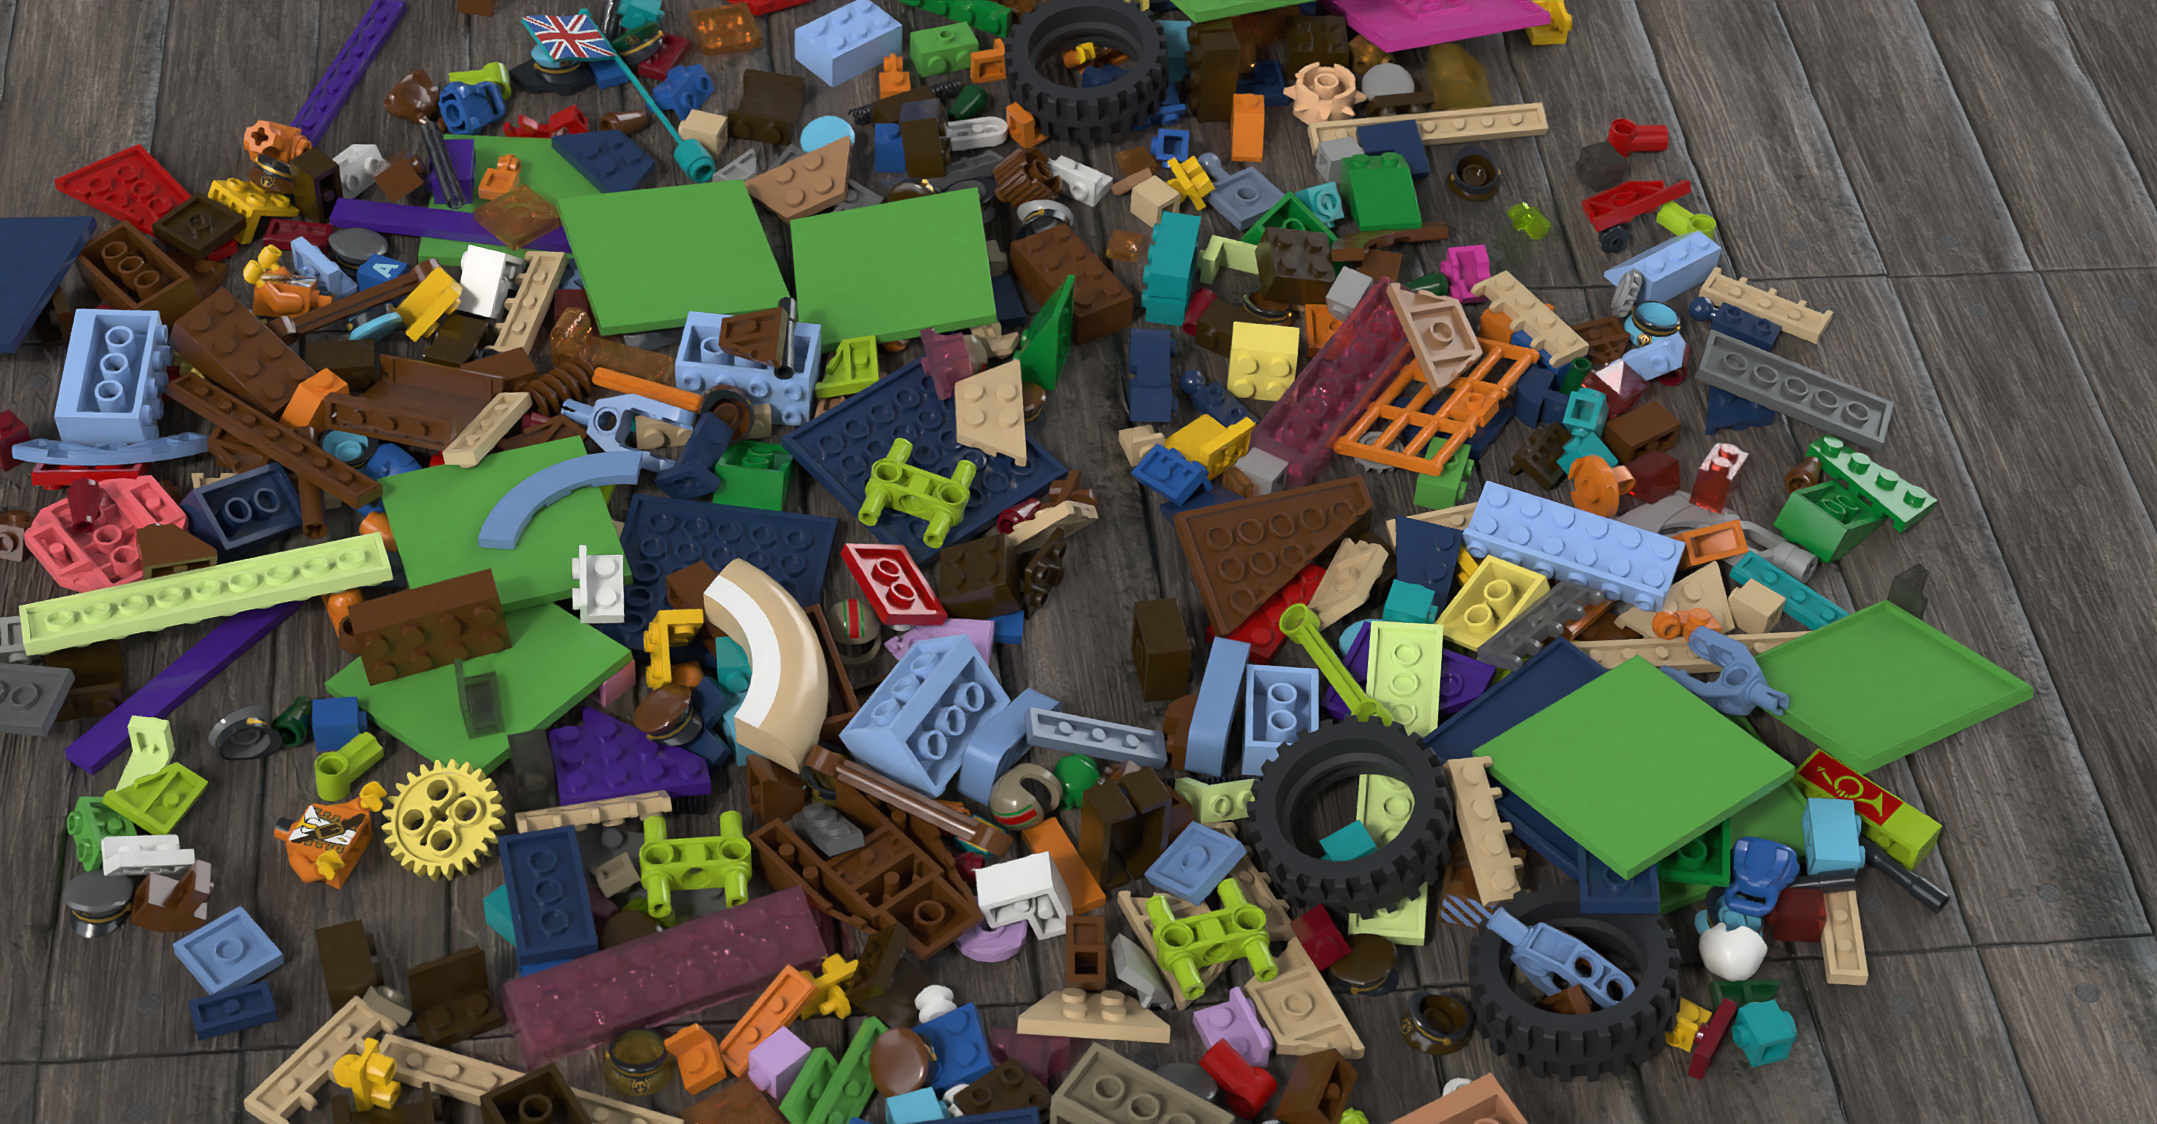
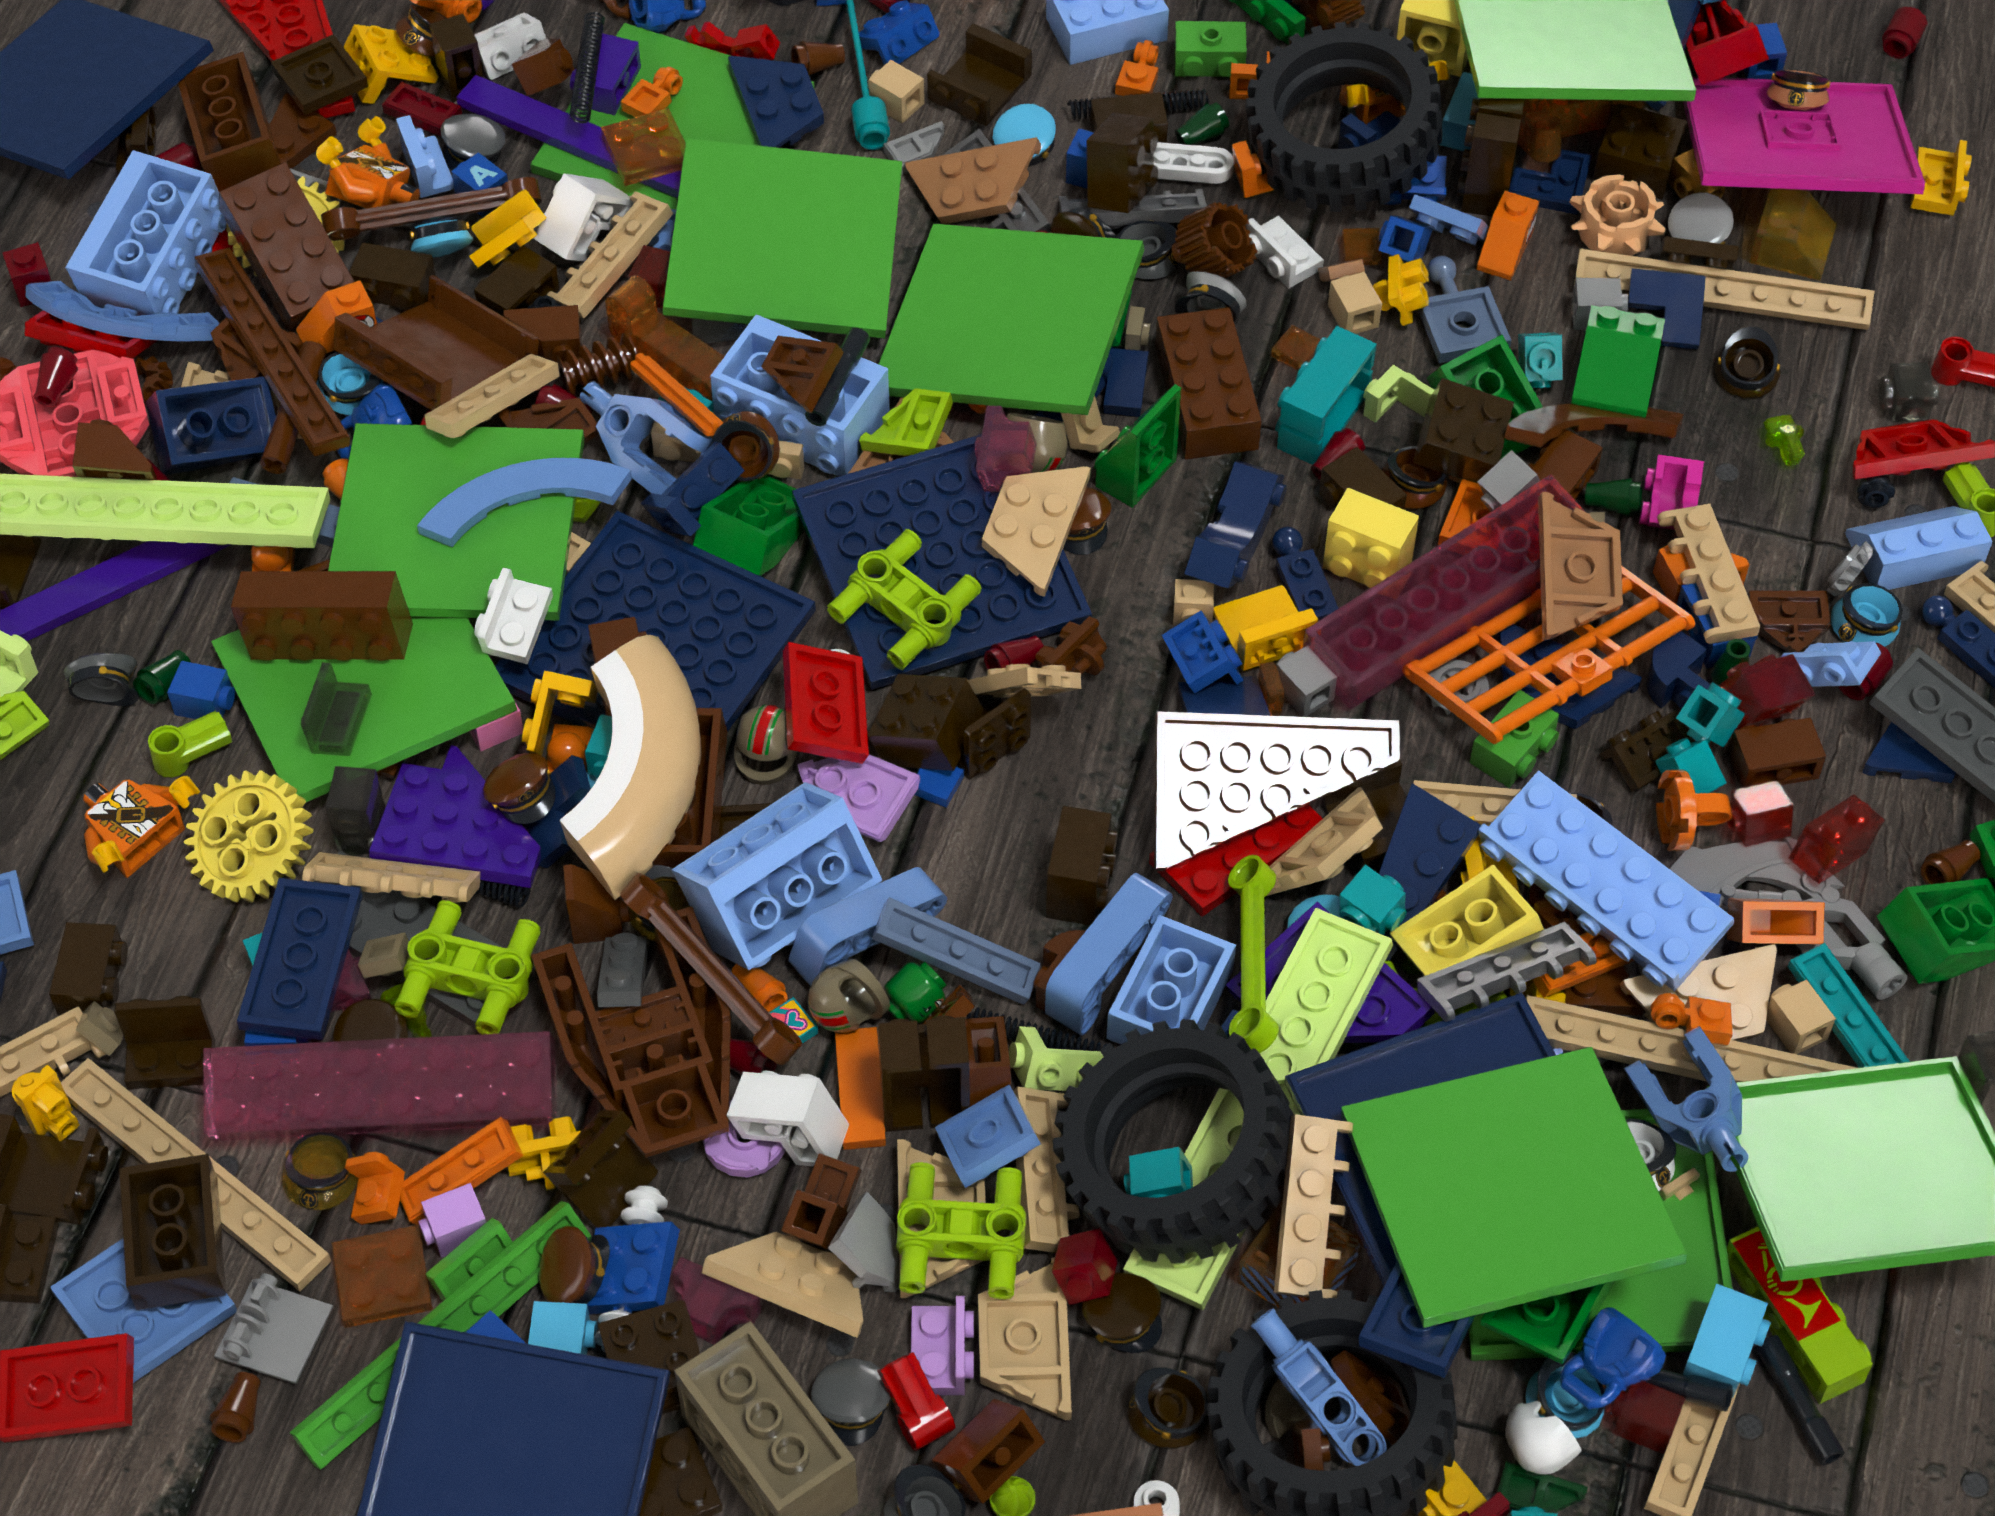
camera: 25 degrees right, 10 degrees up
(1202, 124) = (1462, 225): none -> medium blue plate

